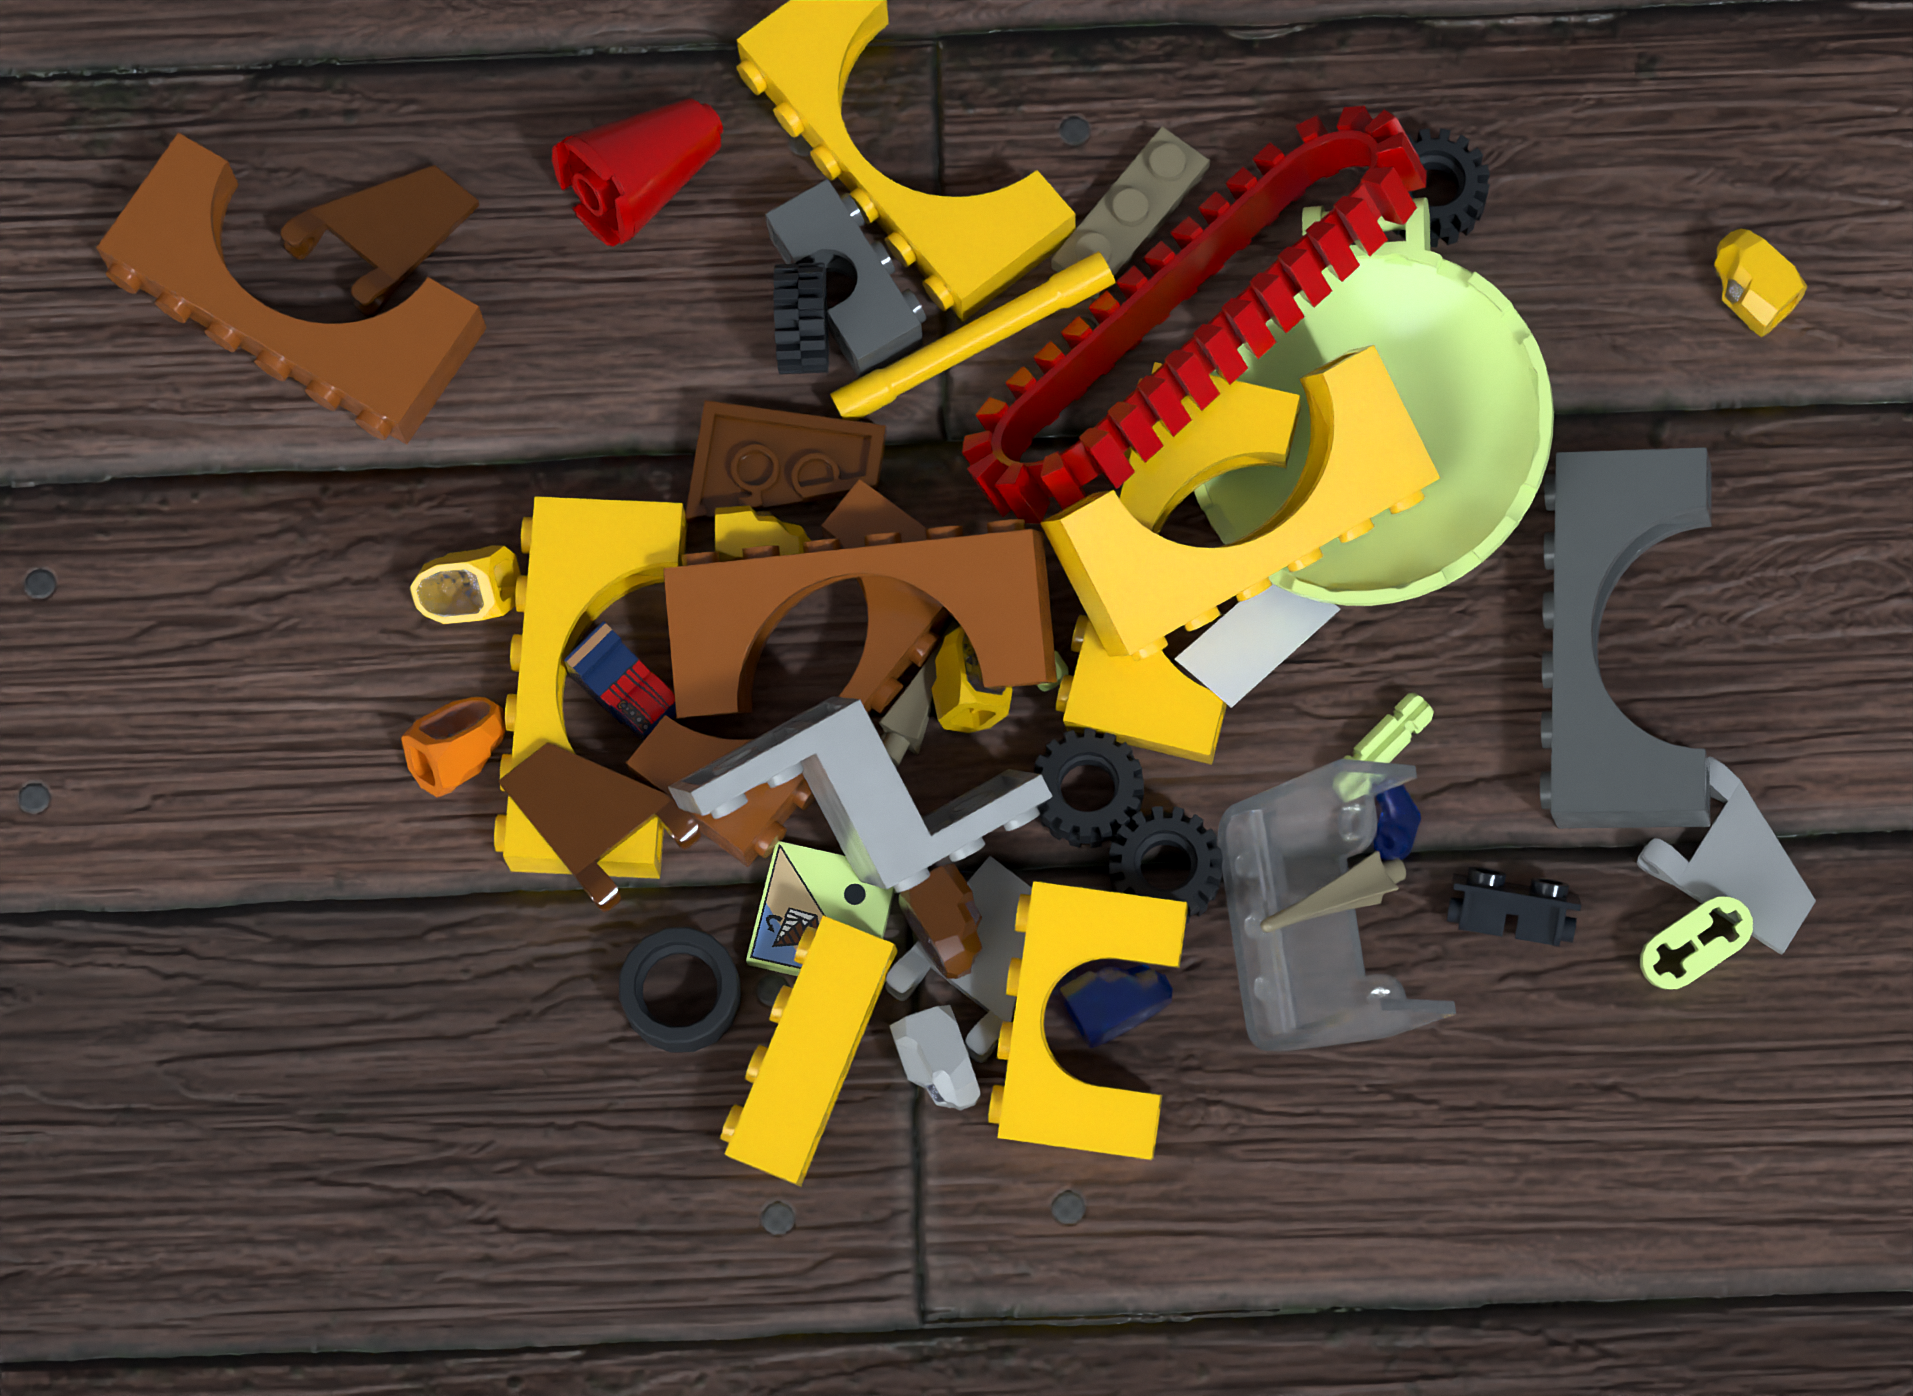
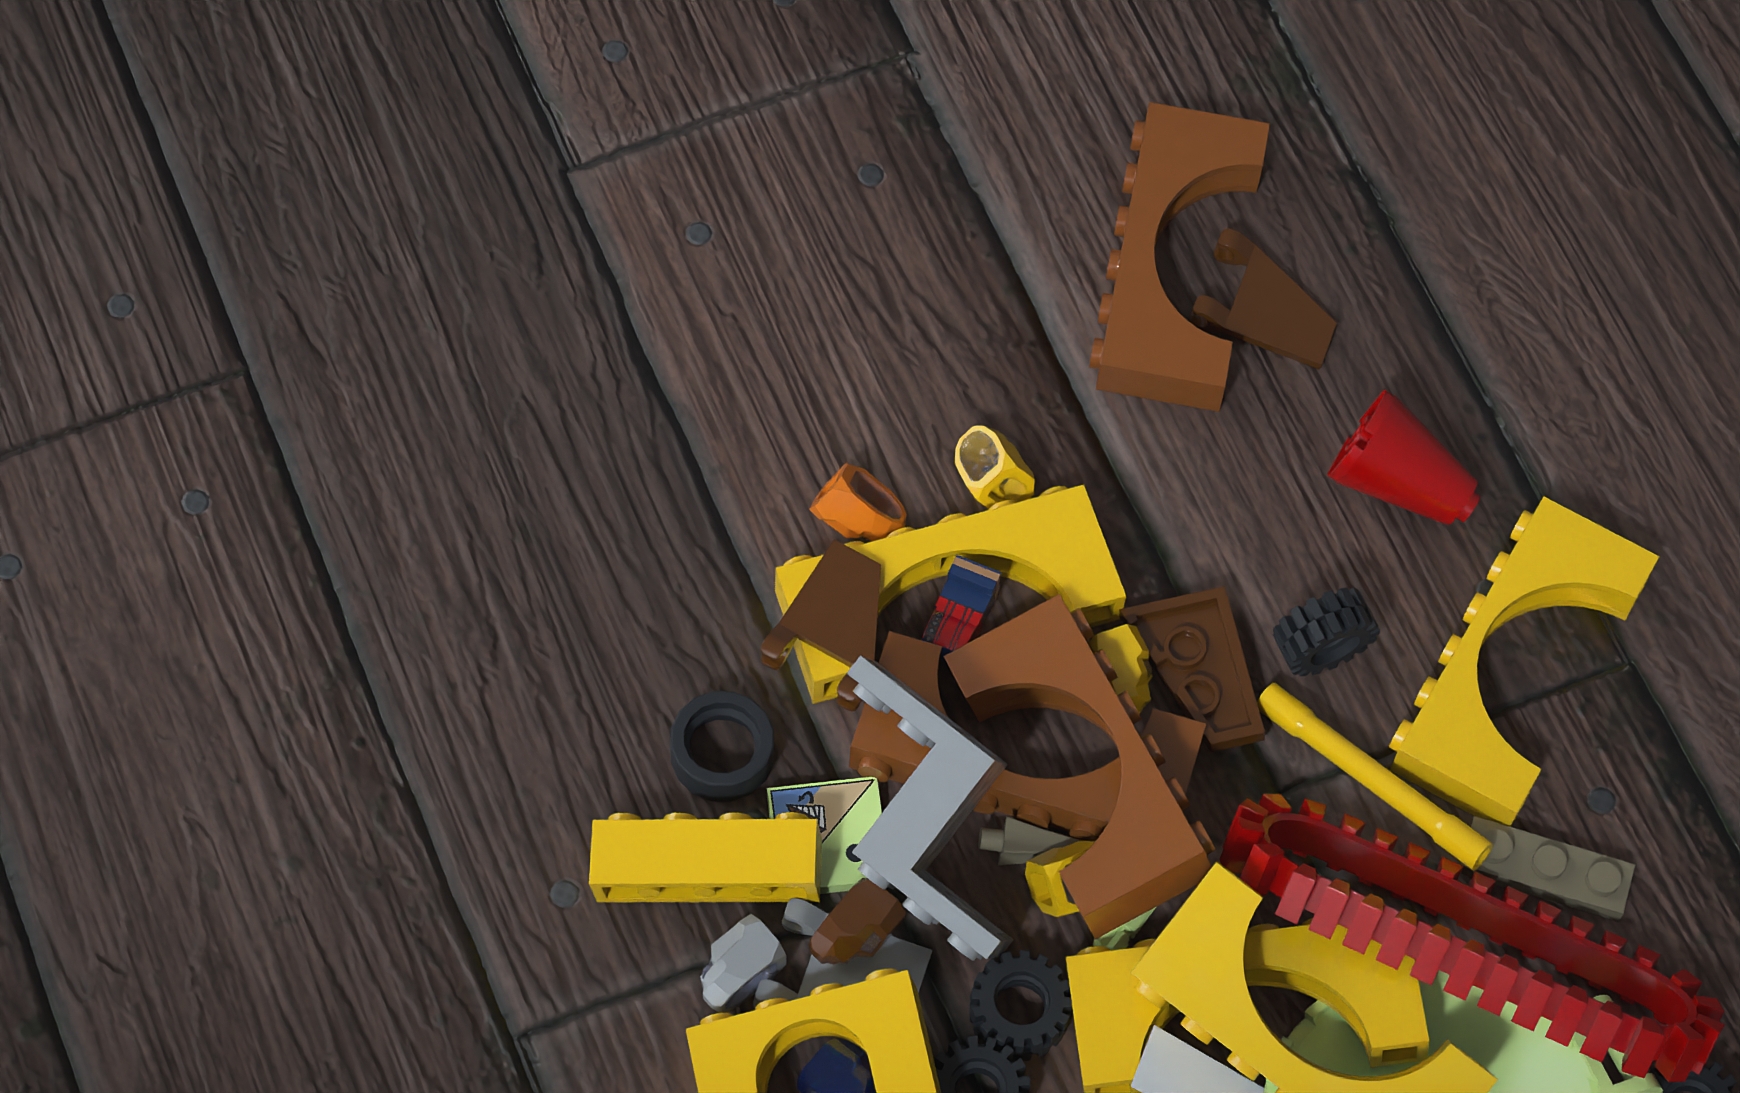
camera: 60 degrees right, 10 degrees down
(877, 319) = (1355, 693): dark grey arch -> none

